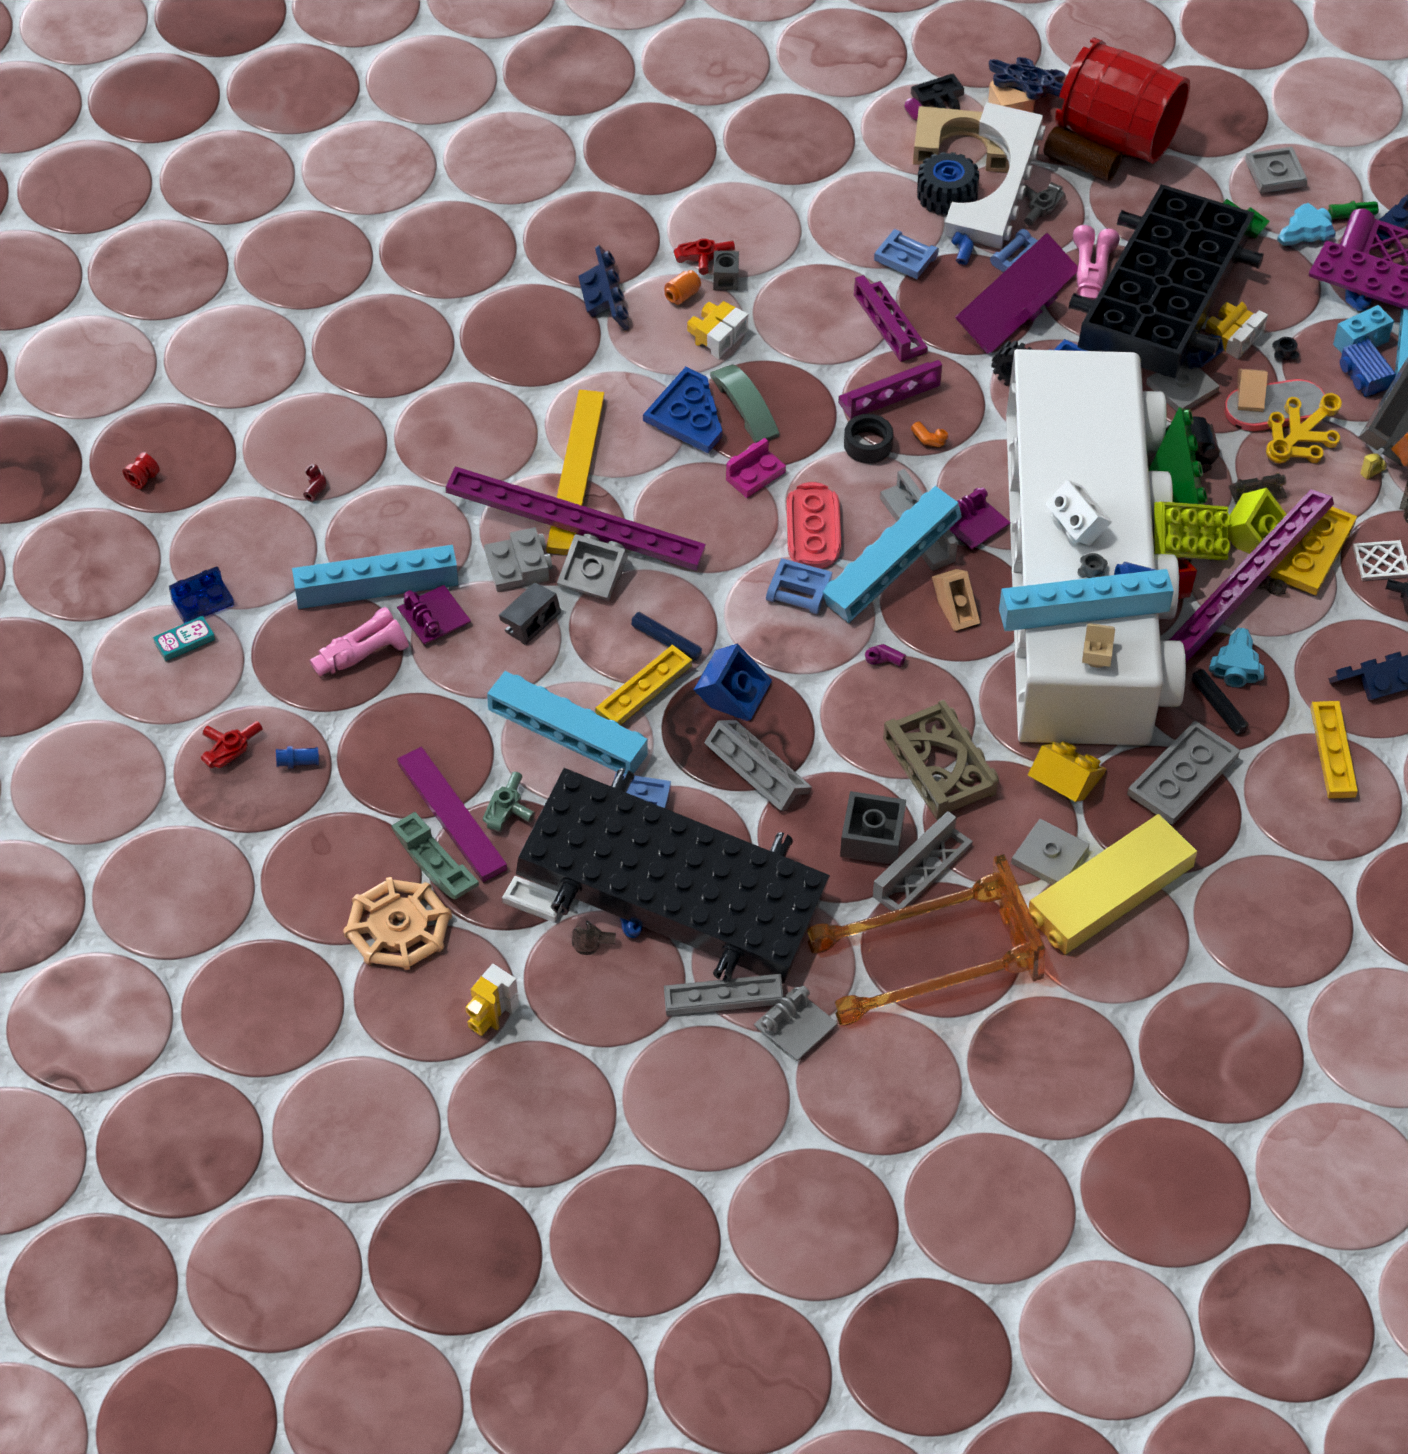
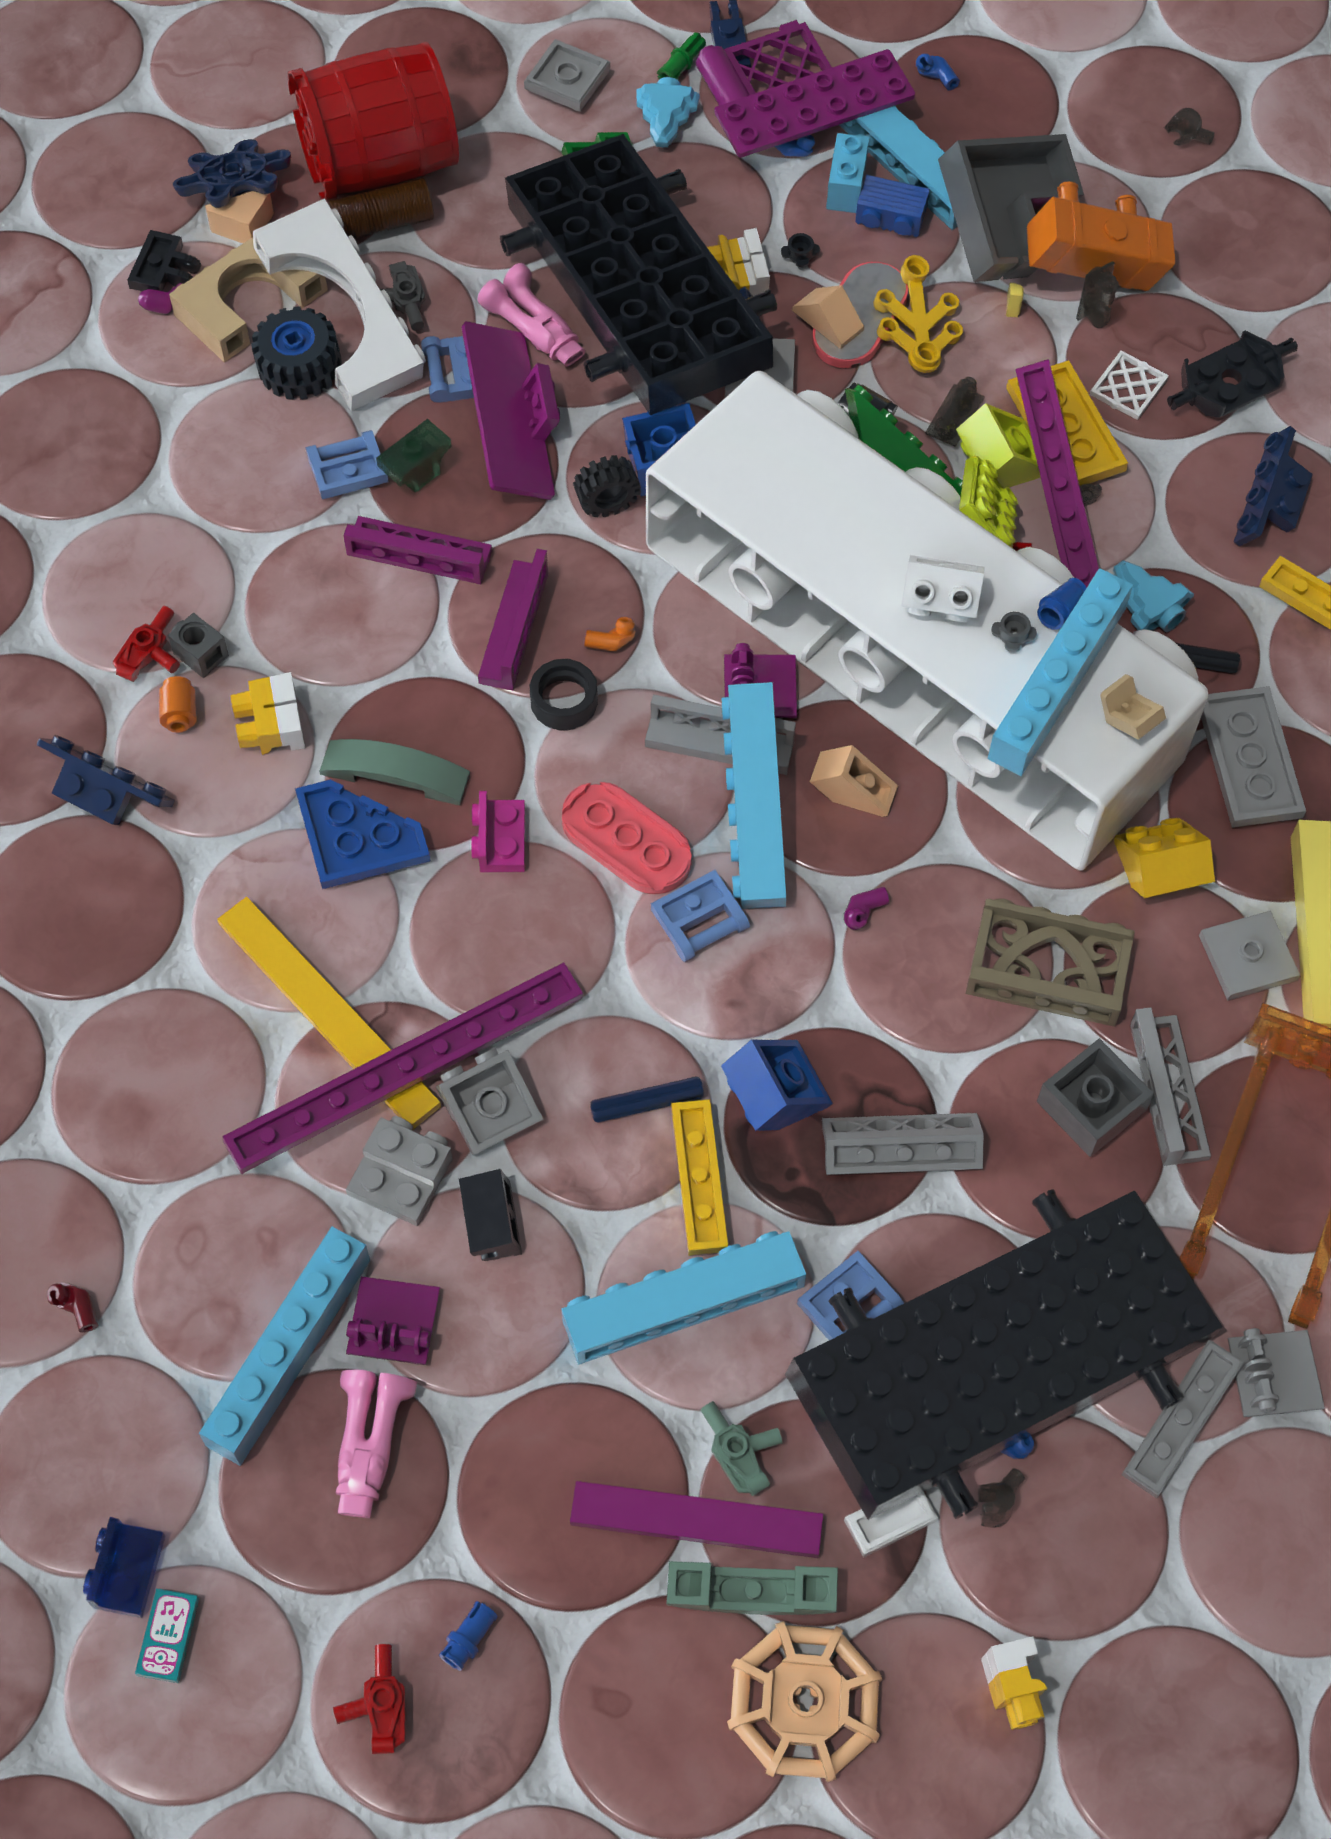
camera: 50 degrees left, 10 degrees up
(939, 275) = (416, 456): none -> clear green brick
(965, 247) = (391, 404): blue arm -> none

